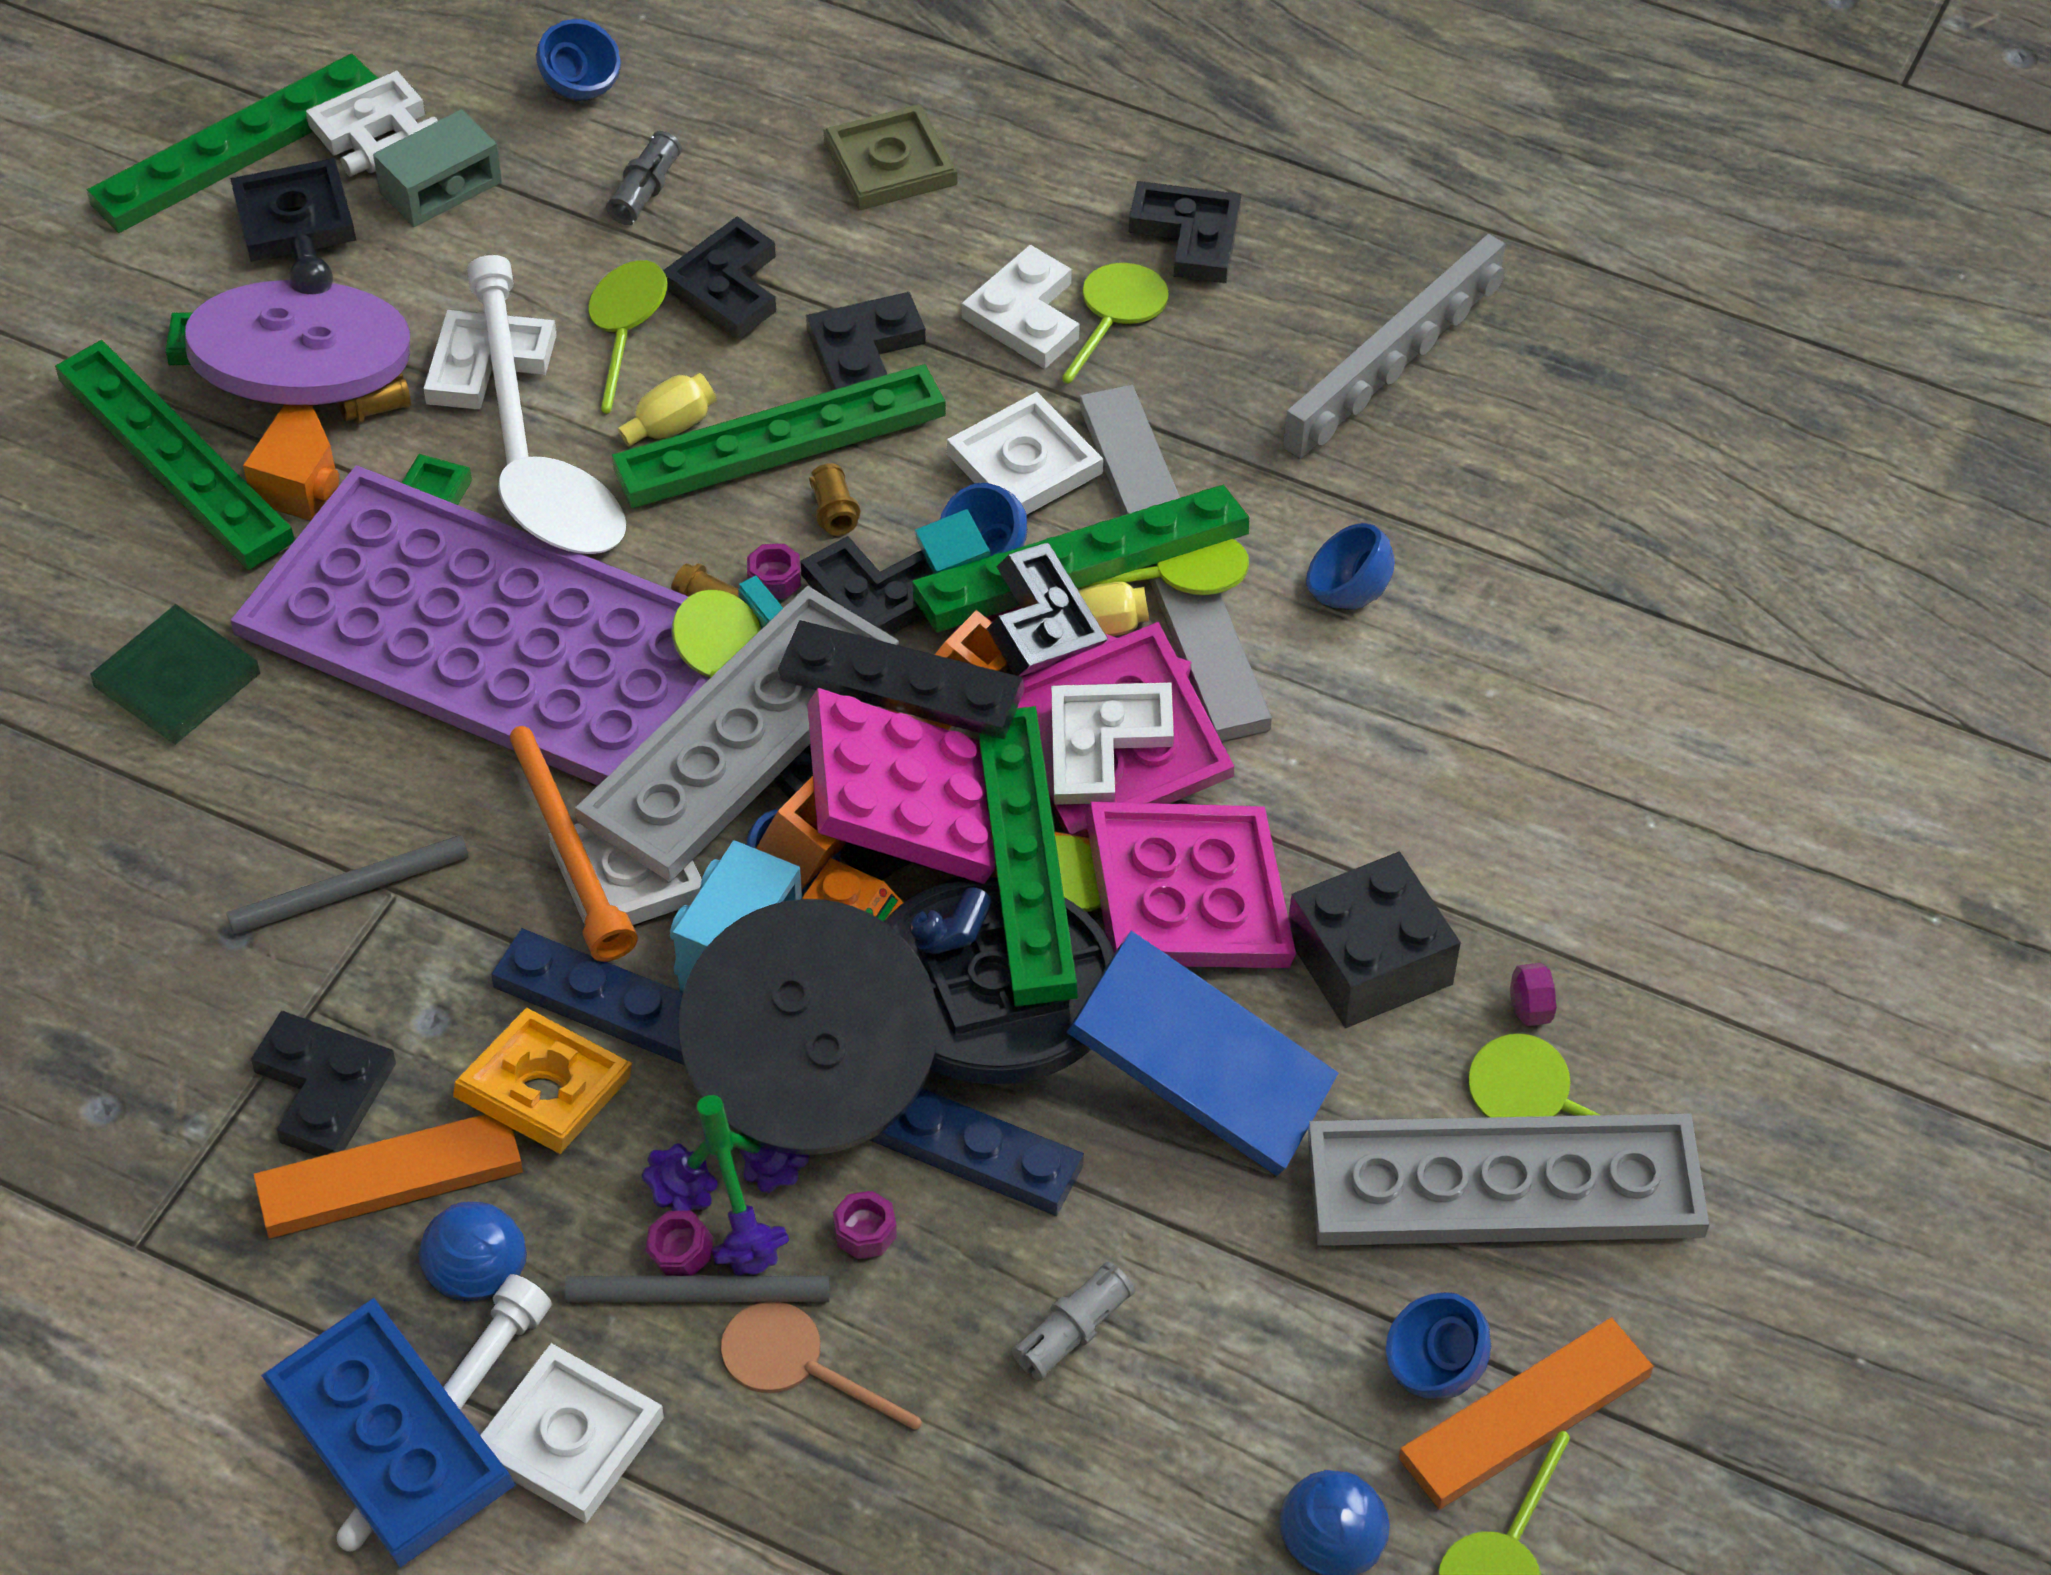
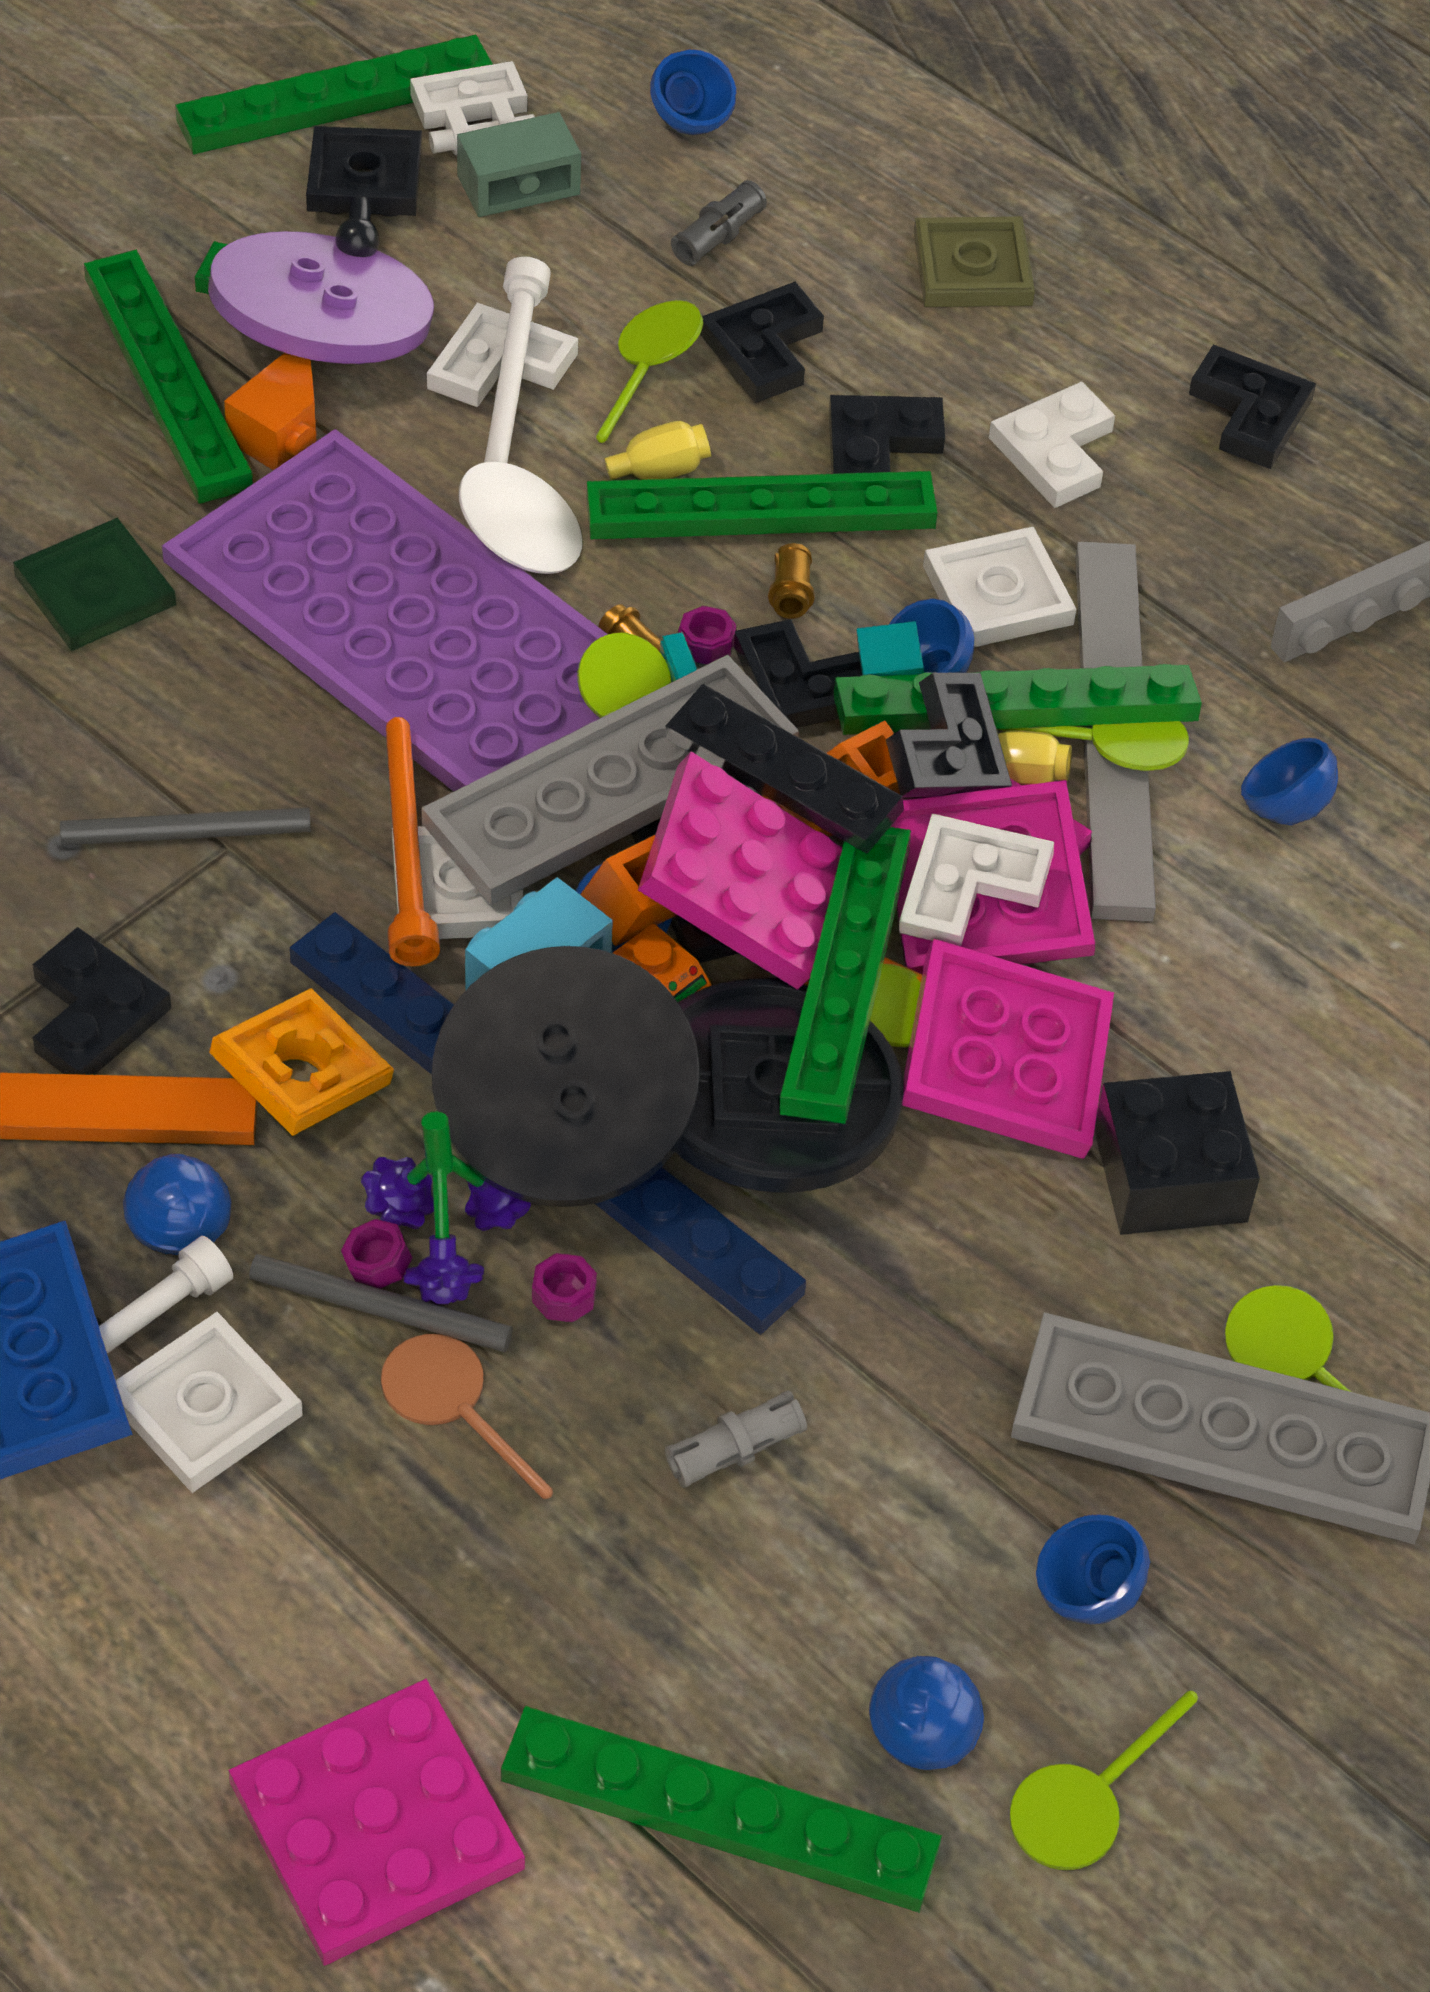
camera: 15 degrees right, 0 degrees up
(390, 397) = (388, 373): pearl gold pin -> none
(439, 478) = (413, 463): green tile -> none
(941, 935) = (754, 1026): dark blue arm -> none
(1119, 295) = (1157, 454): lime piece -> none
(1203, 1053) = (958, 1214): blue tile -> none
(1525, 1413) = (1162, 1662): orange tile -> none
(1533, 994) = (1322, 1252): magenta tile -> none

